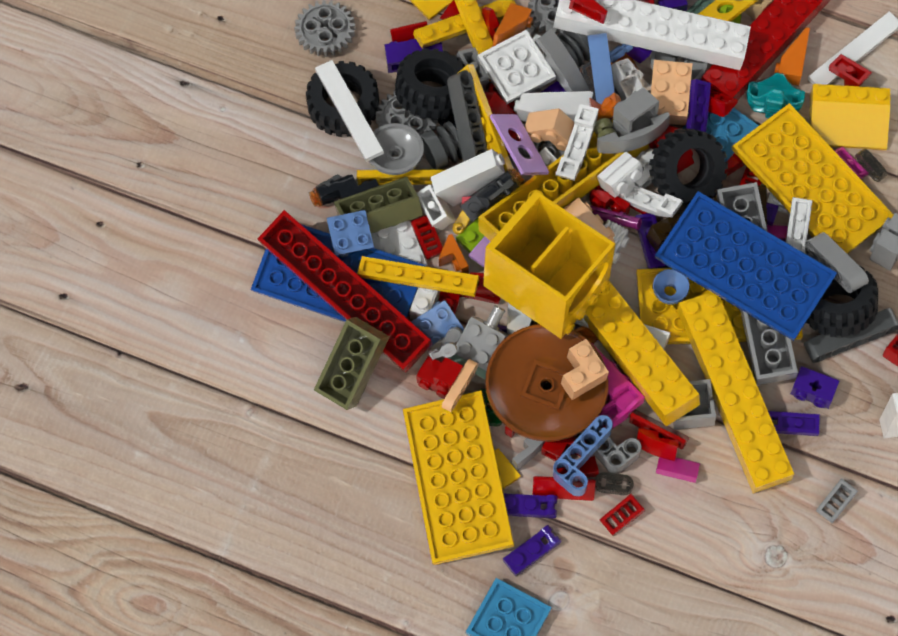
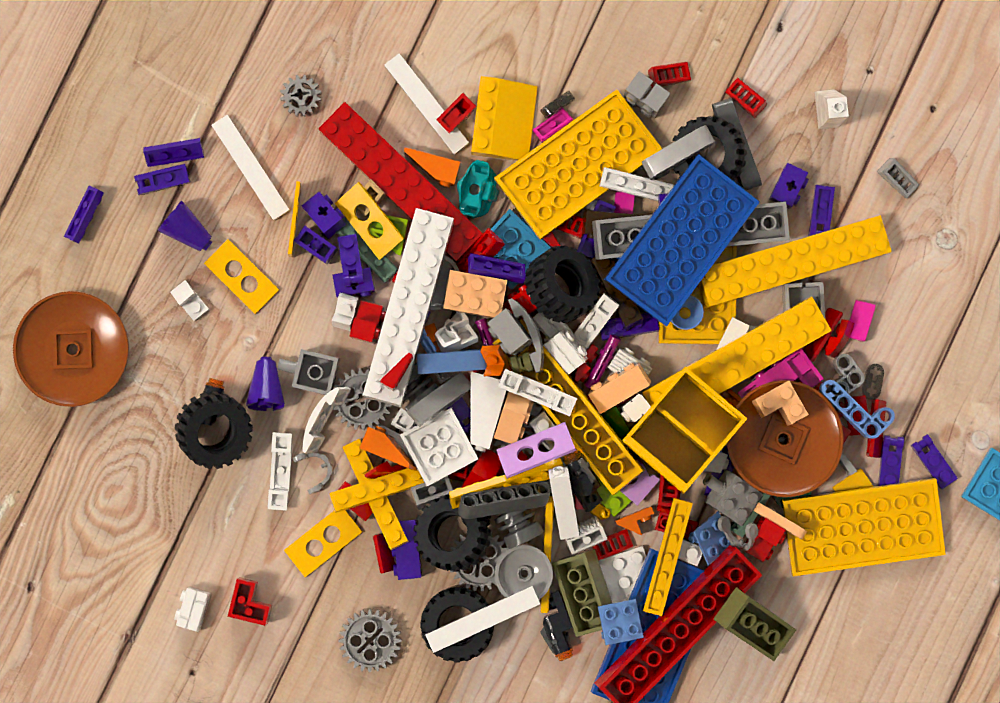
camera: 85 degrees left, 20 degrees up
(617, 509) = (899, 359): red slope -> none

